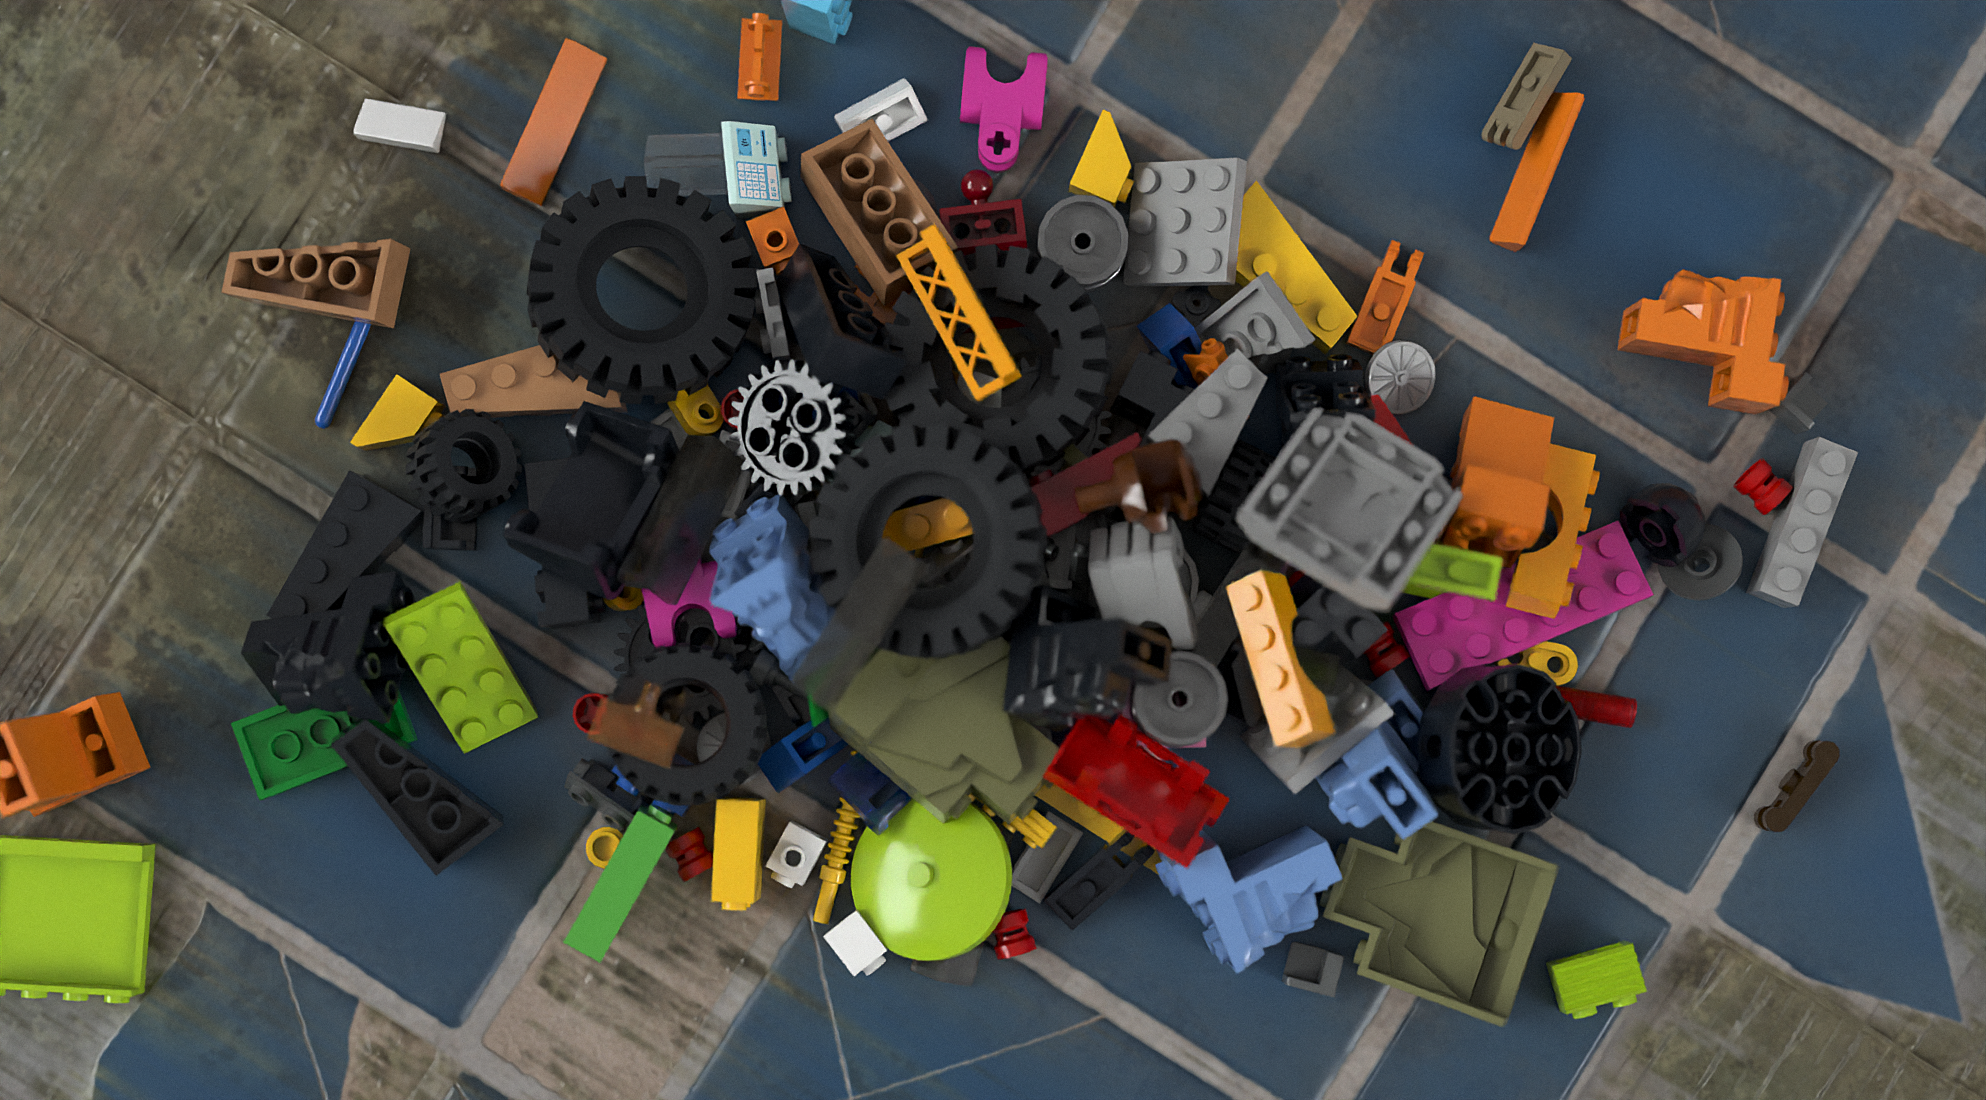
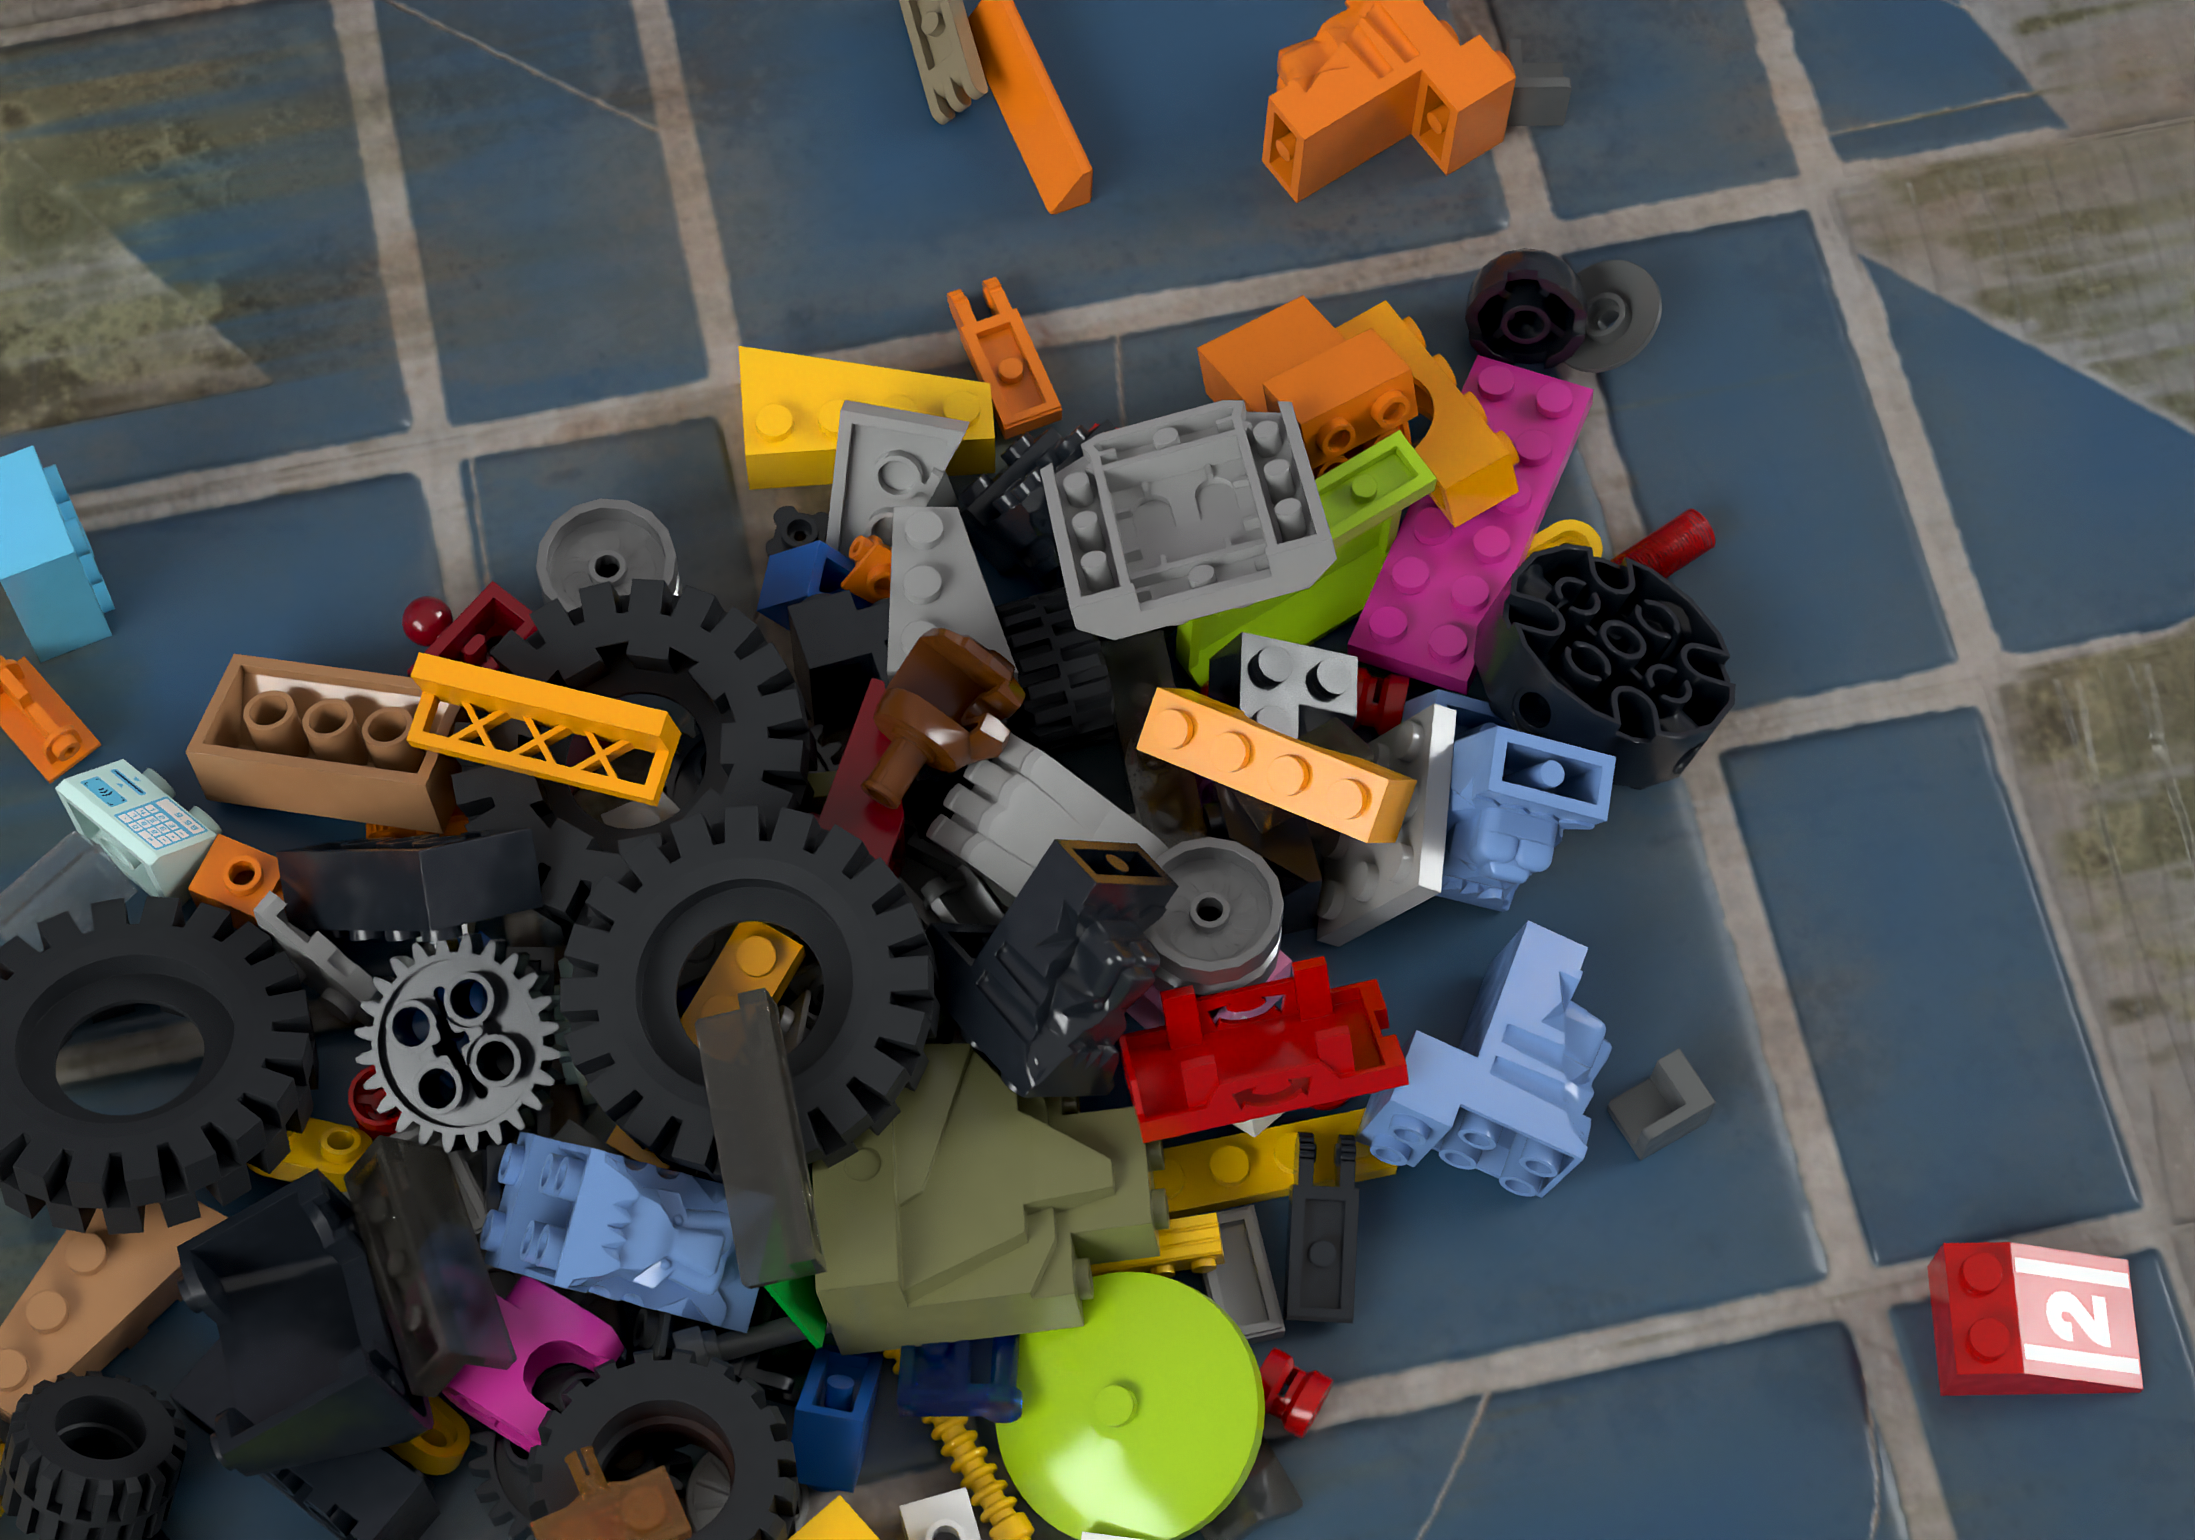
camera: 50 degrees left, 20 degrees down
(892, 109) = (247, 628): white slope -> none
(1002, 107) = (374, 527): dark pink piece -> none
(1104, 165) = (547, 476): yellow slope -> none
(1185, 223) = (705, 454): light grey plate -> none
(1401, 376) = (1093, 395): light grey wheel -> none
(1443, 916) = (1735, 900): olive panel -> none
(1596, 979) = (1962, 824): lime brick -> none
(1762, 486) = (1586, 192): red wheel -> none
(1798, 786) = (1944, 441): dark brown plate -> none
(1802, 522) = (1663, 190): light grey brick -> none

